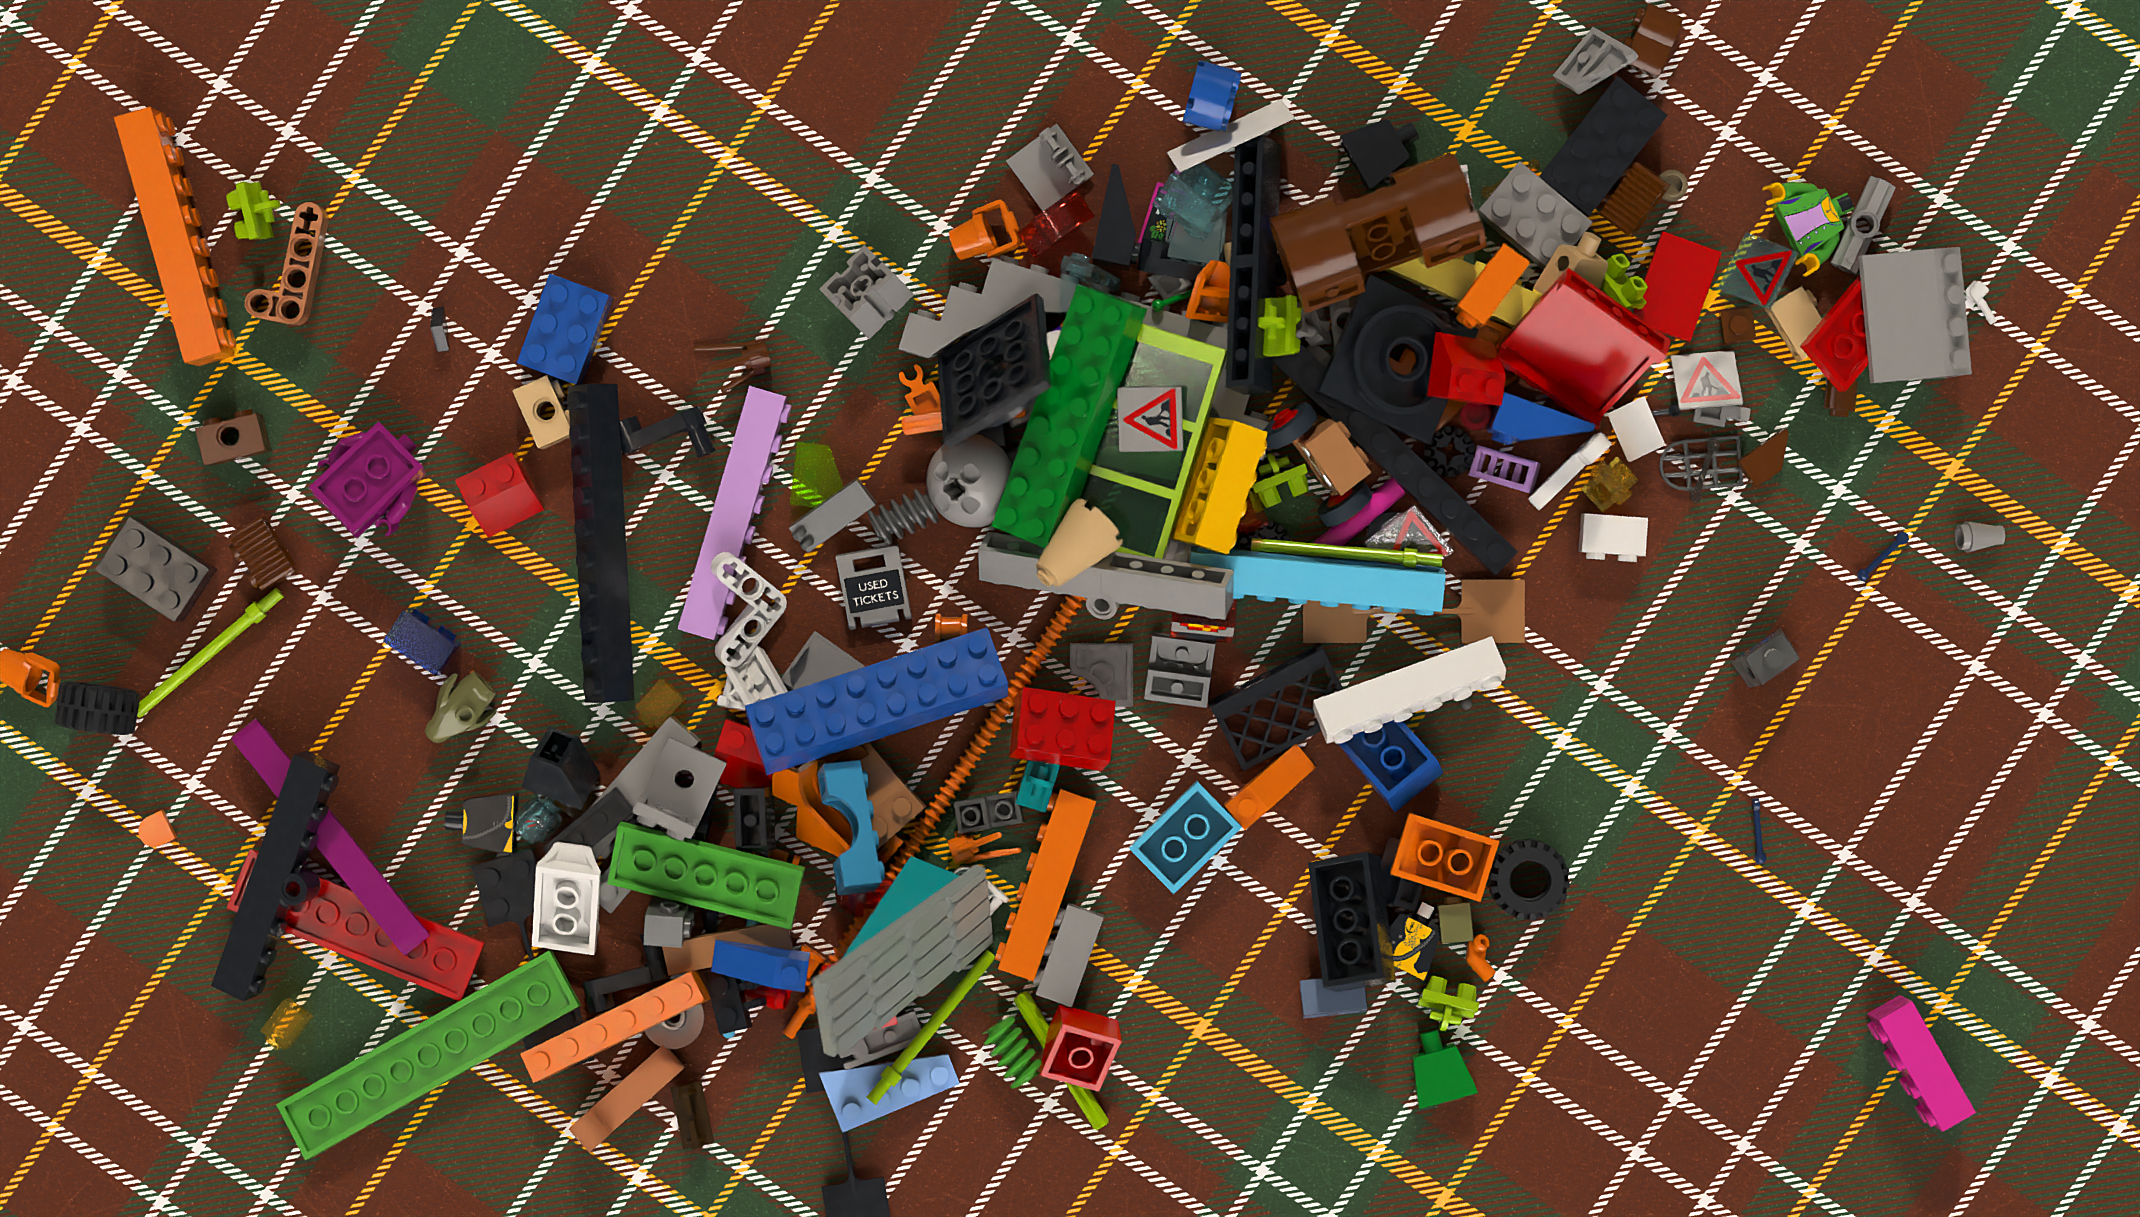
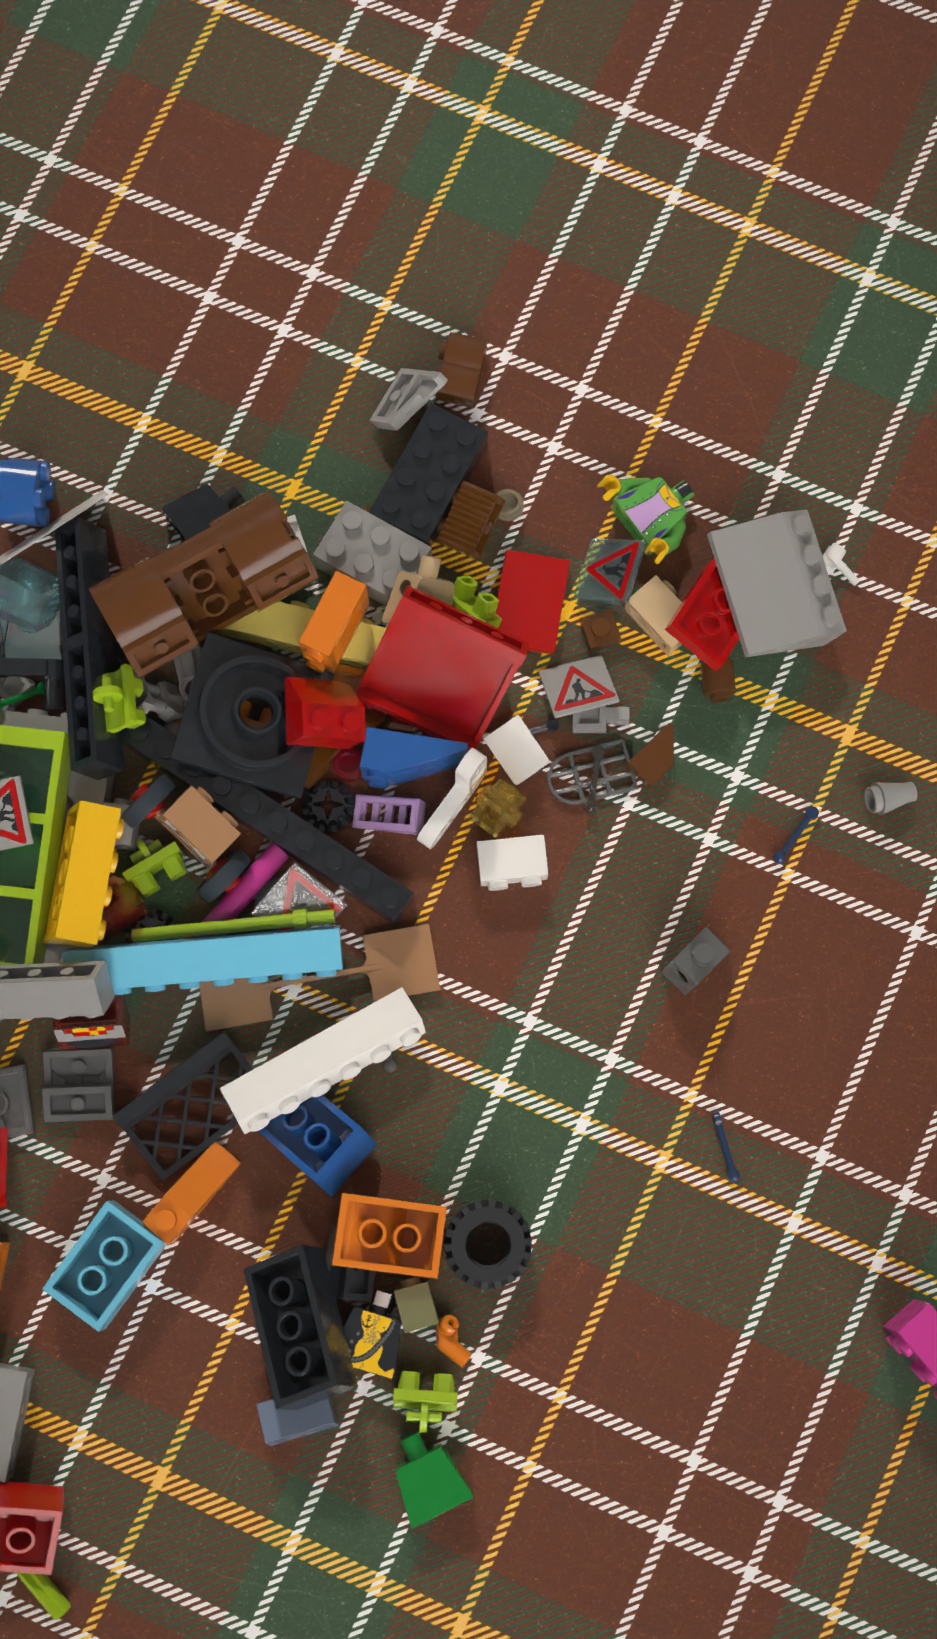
camera: 15 degrees left, 10 degrees down
(1211, 293) = (44, 682): orange slope -> none
(1871, 207) = (709, 492): light grey piece -> none

